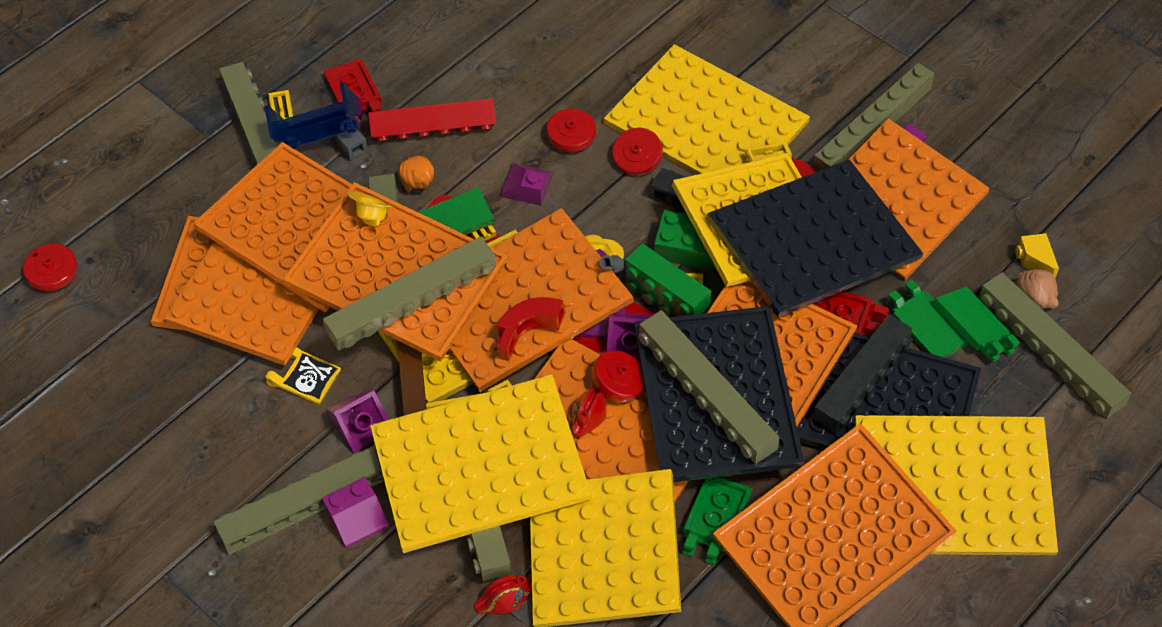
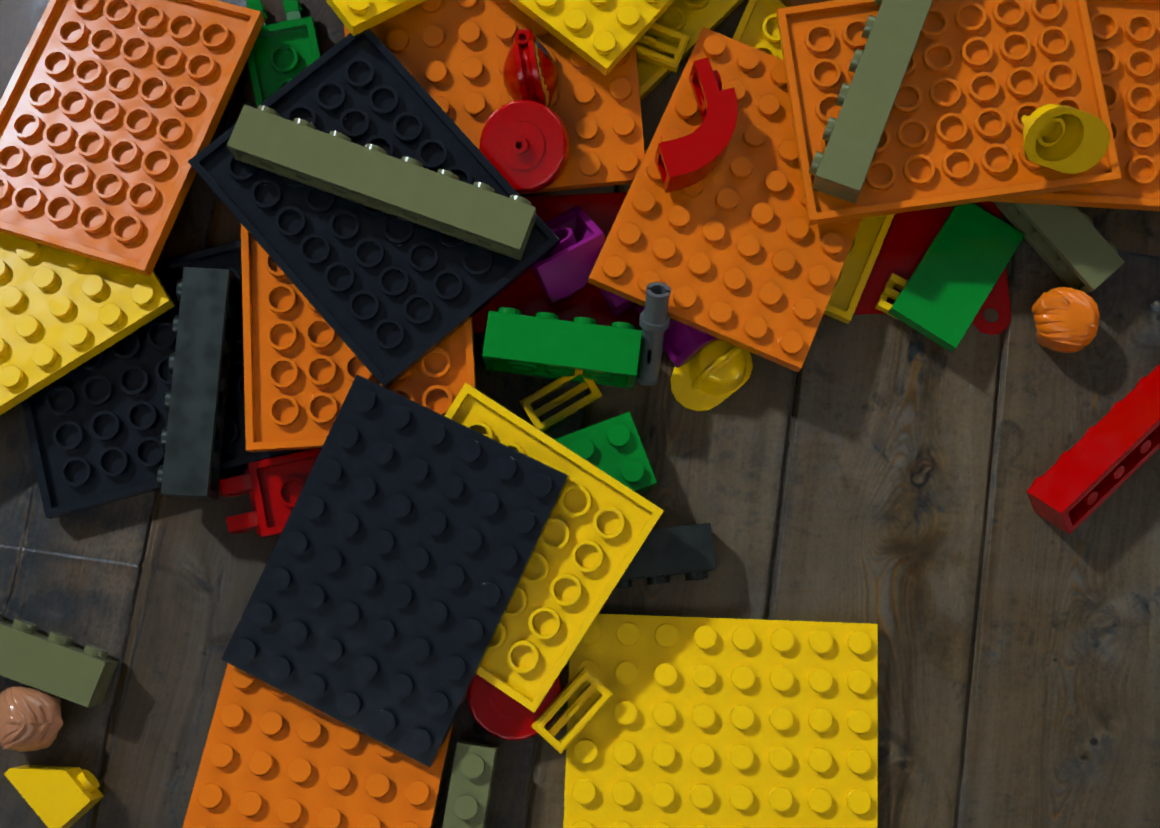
camera: 145 degrees right, 25 degrees up
(527, 184) = (900, 427): magenta slope -> none
(571, 130) = (908, 563): red wheel -> none
(637, 152) = (778, 587): red wheel -> none
(930, 328) = (164, 556): green tile -> none
(976, 323) = (93, 598): green tile -> none

